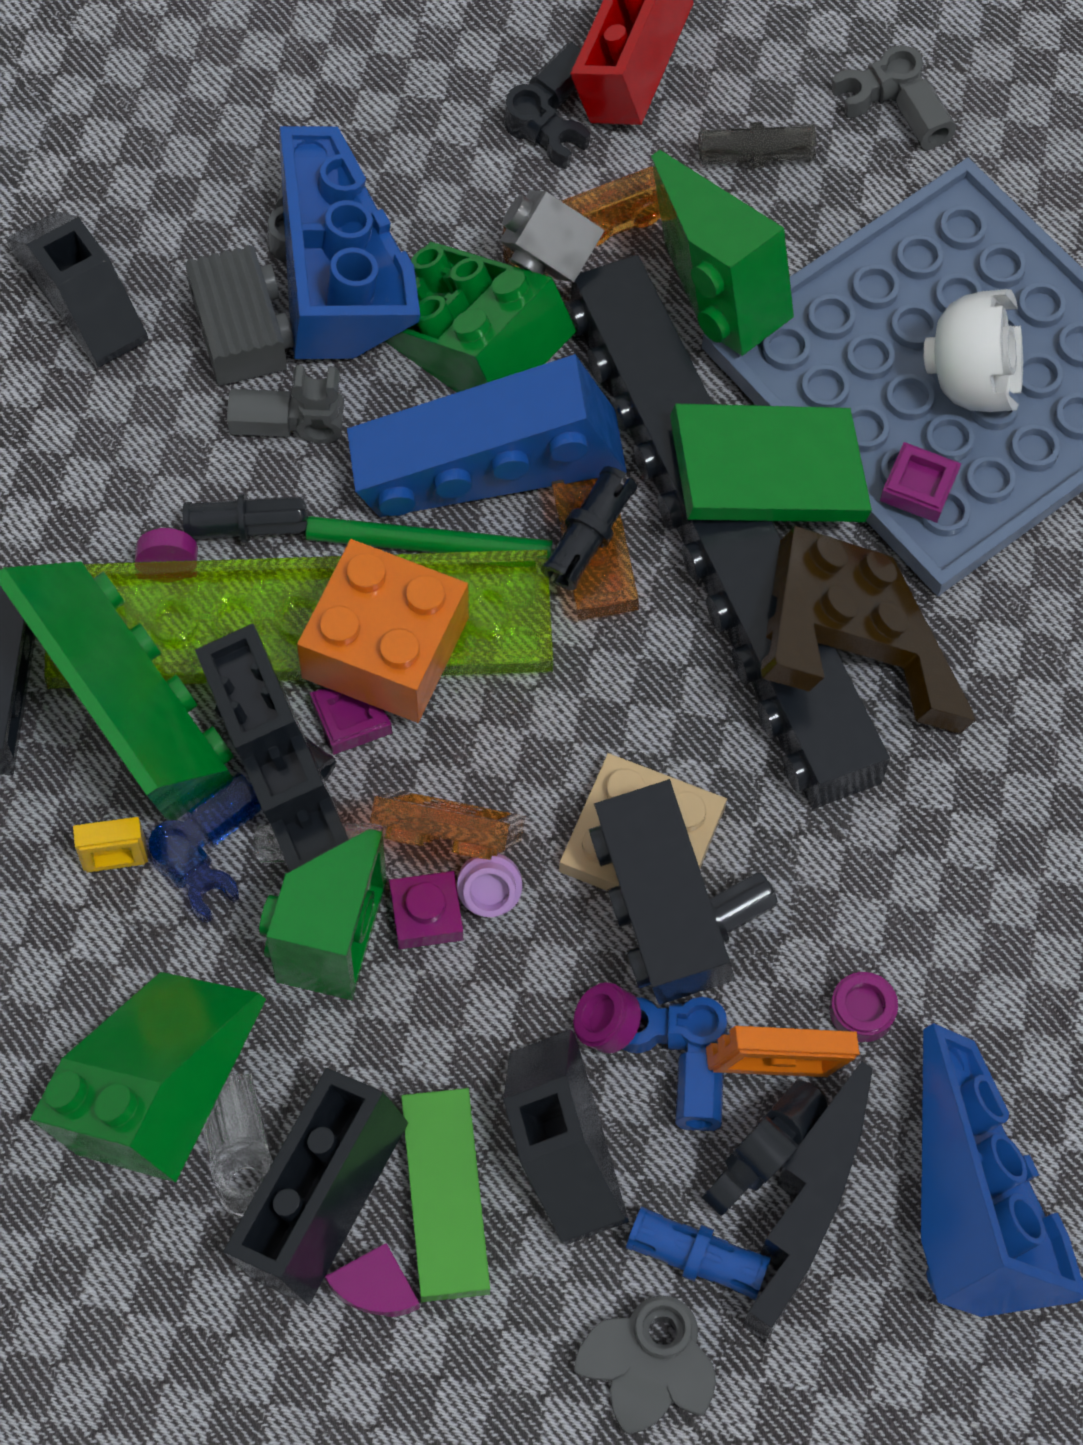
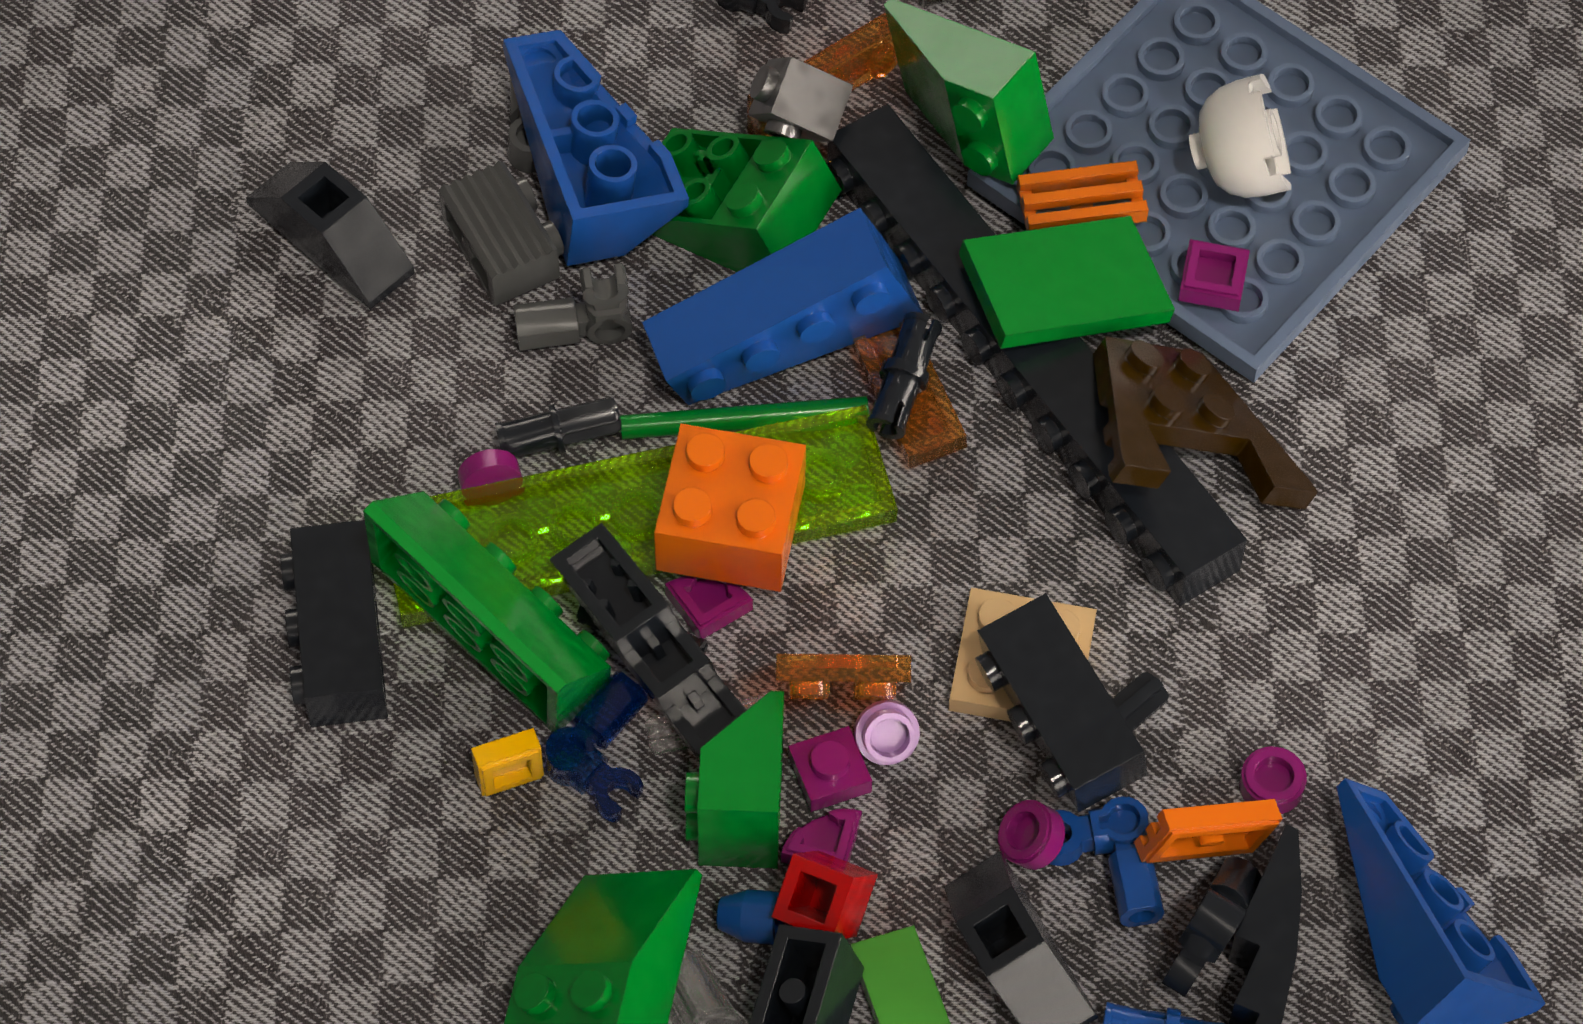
camera: 10 degrees left, 5 degrees down
(312, 1045) = (748, 916): none -> blue hose
(383, 1042) = (824, 893): none -> red brick
(403, 984) = (830, 834): none -> magenta tile
(807, 373) = (1079, 191): none -> orange tile

